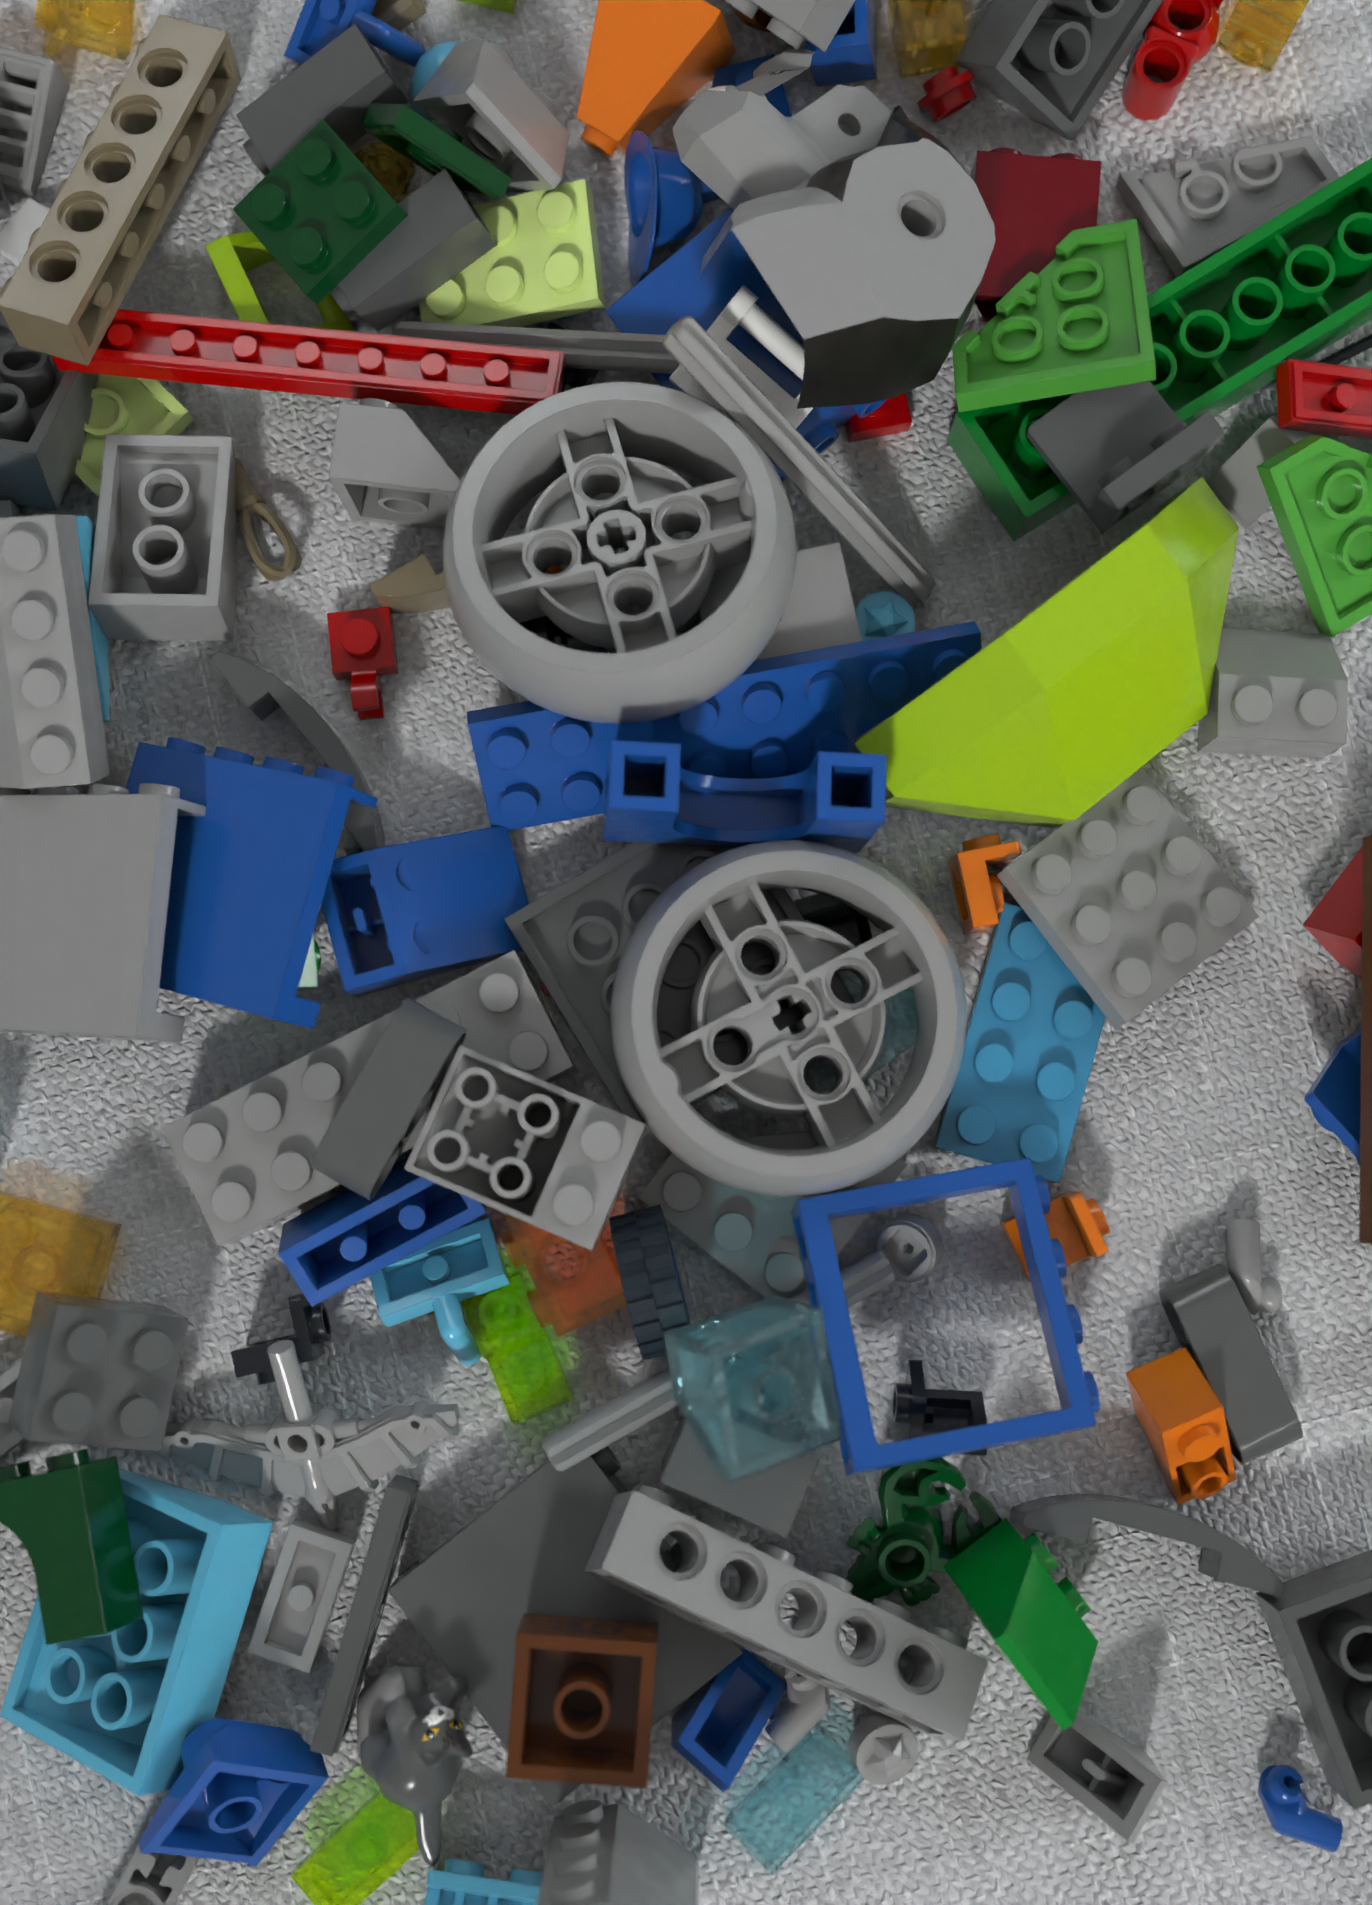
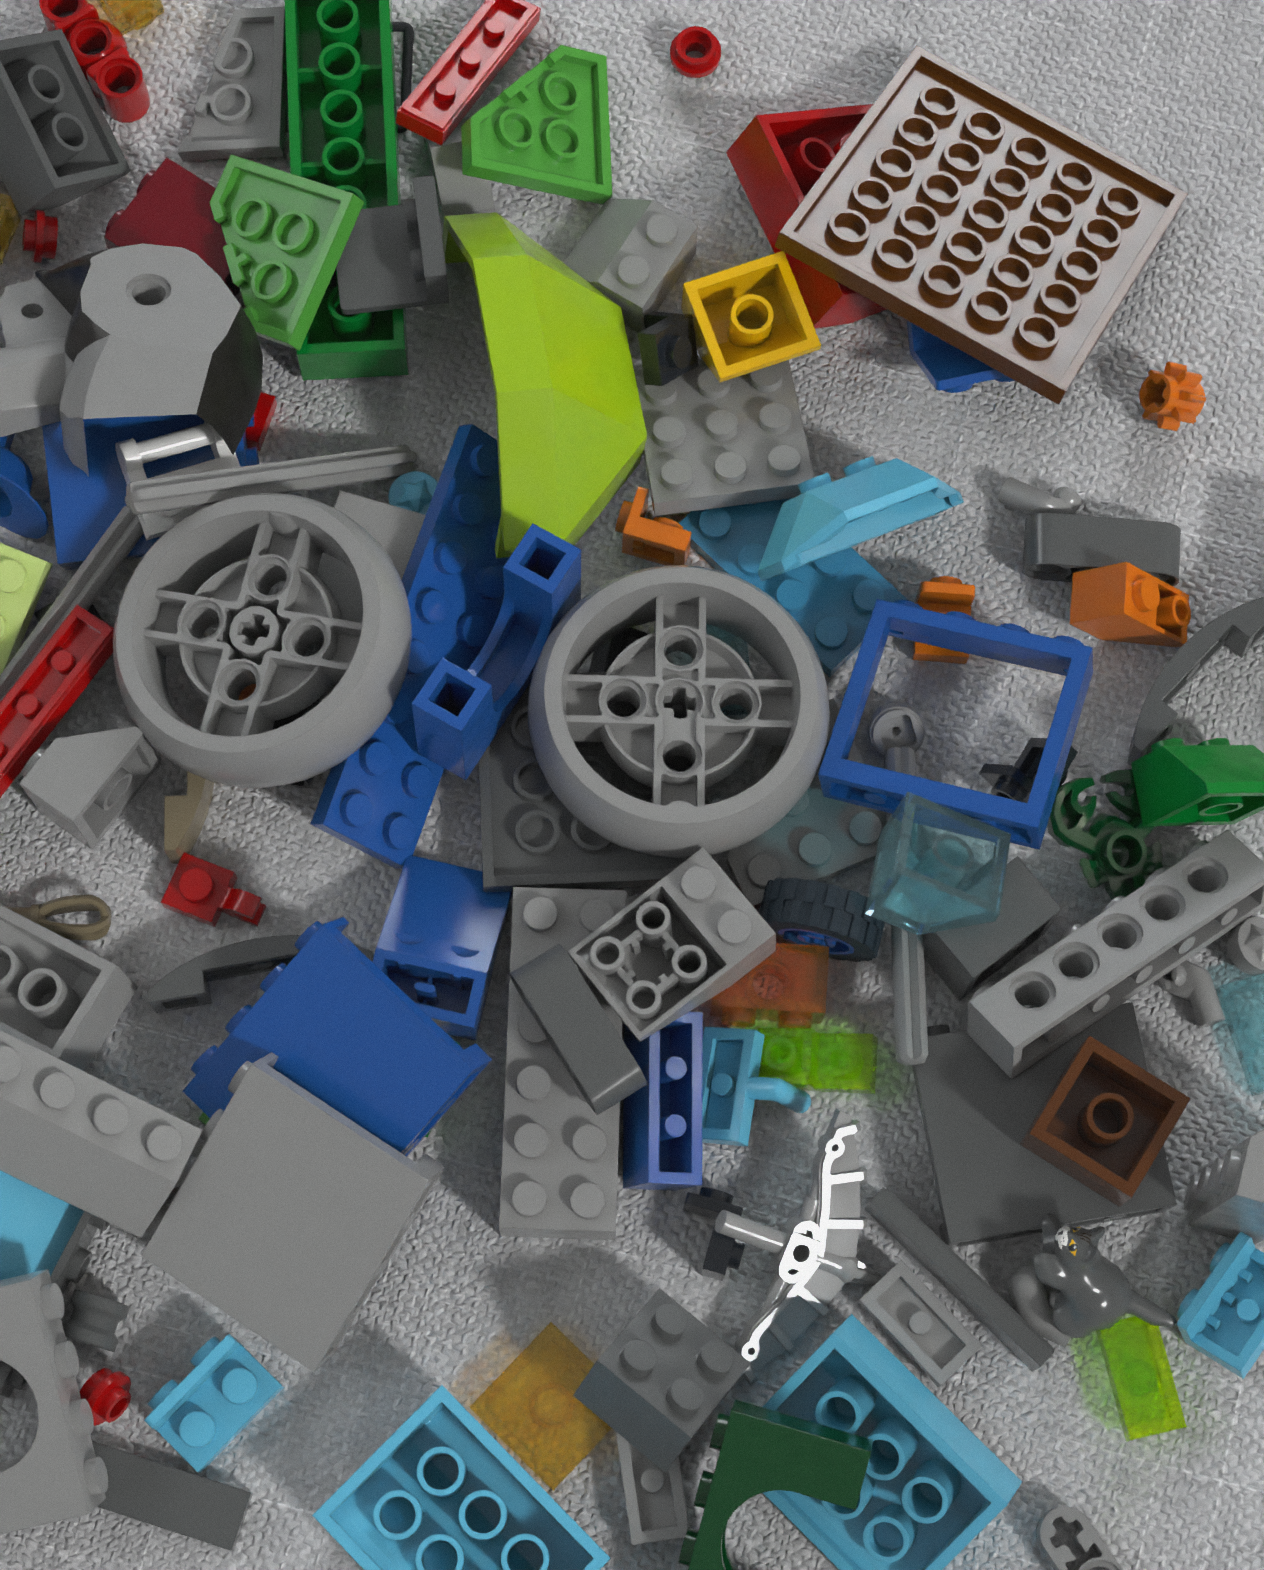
camera: 65 degrees left, 10 degrees down
(235, 1792) = (1046, 1444): blue slope -> none
(726, 1718) = (1176, 1044): blue slope -> none
(1112, 1078) = (852, 511): none -> medium azure wedge
(1190, 786) = (667, 347): none -> black bracket
(1273, 854) = (749, 317): none -> yellow slope

